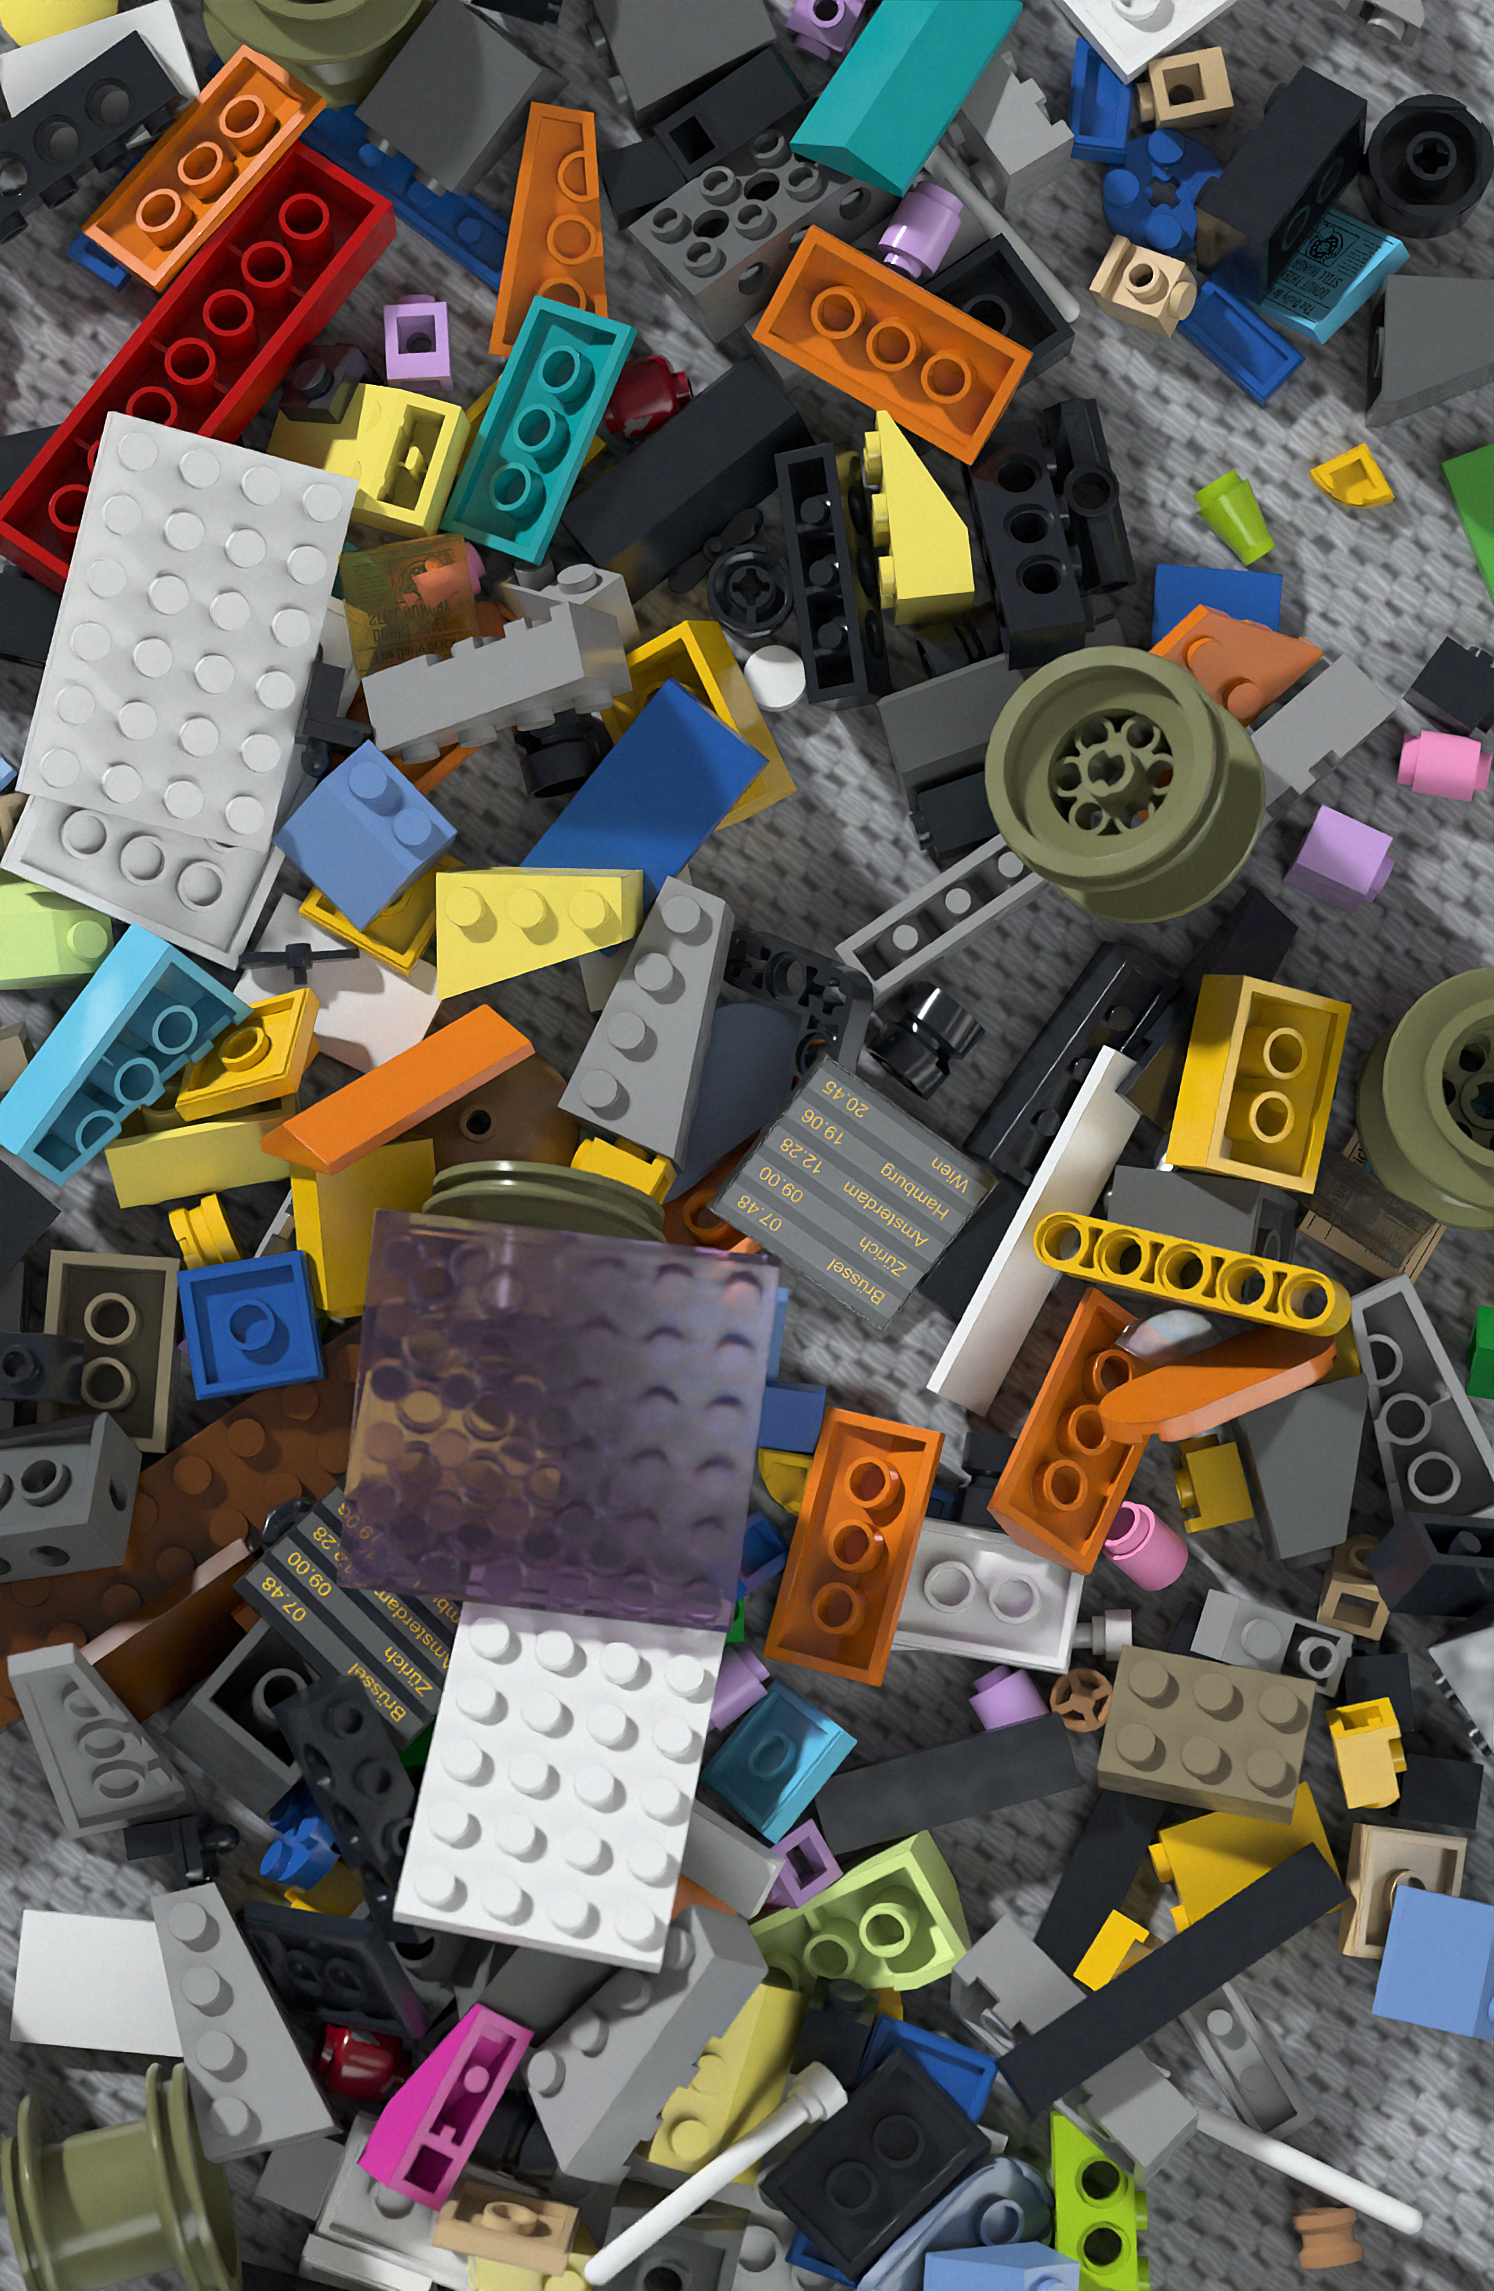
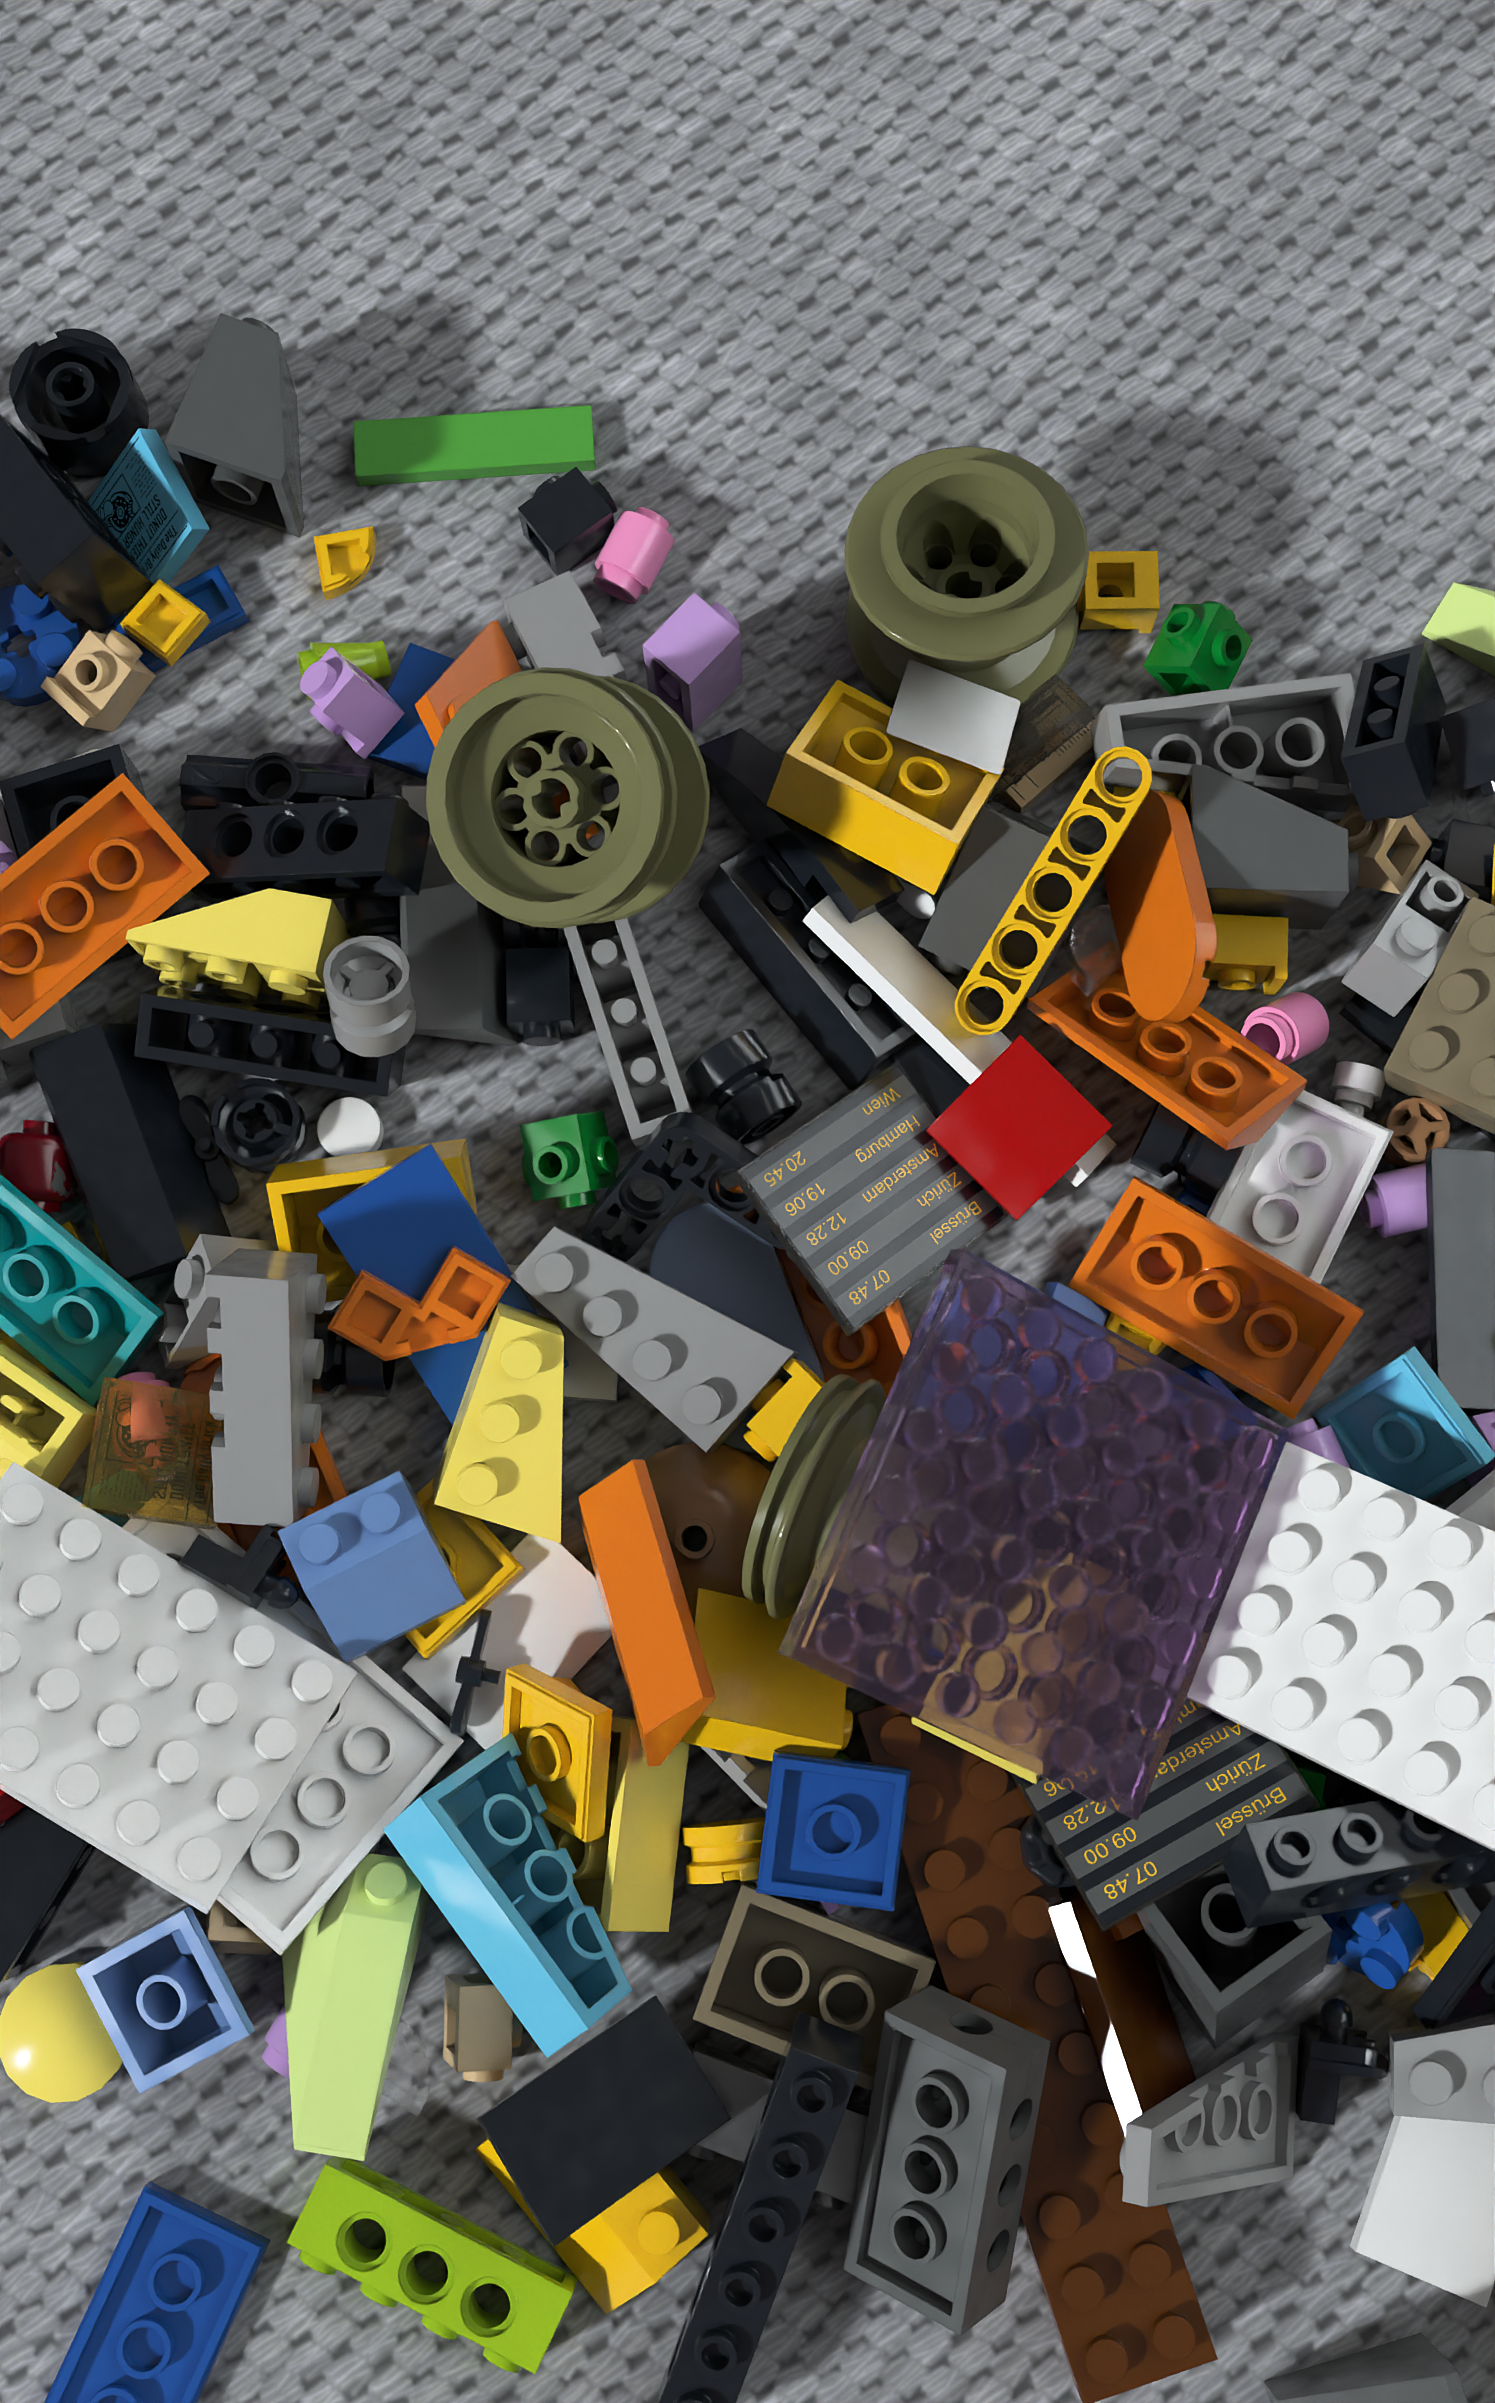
camera: 70 degrees left, 5 degrees down
(591, 784) = (397, 1325): none -> orange tile
(805, 894) = (569, 1158): none -> green brick
(889, 659) = (370, 996): none -> light grey wheel
(963, 1313) = (1018, 1128): none -> red slope
(1195, 538) = (349, 702): none -> lavender brick
(1225, 329) = (165, 622): none -> yellow tile
(1348, 1133) = (953, 717): none -> white sticker

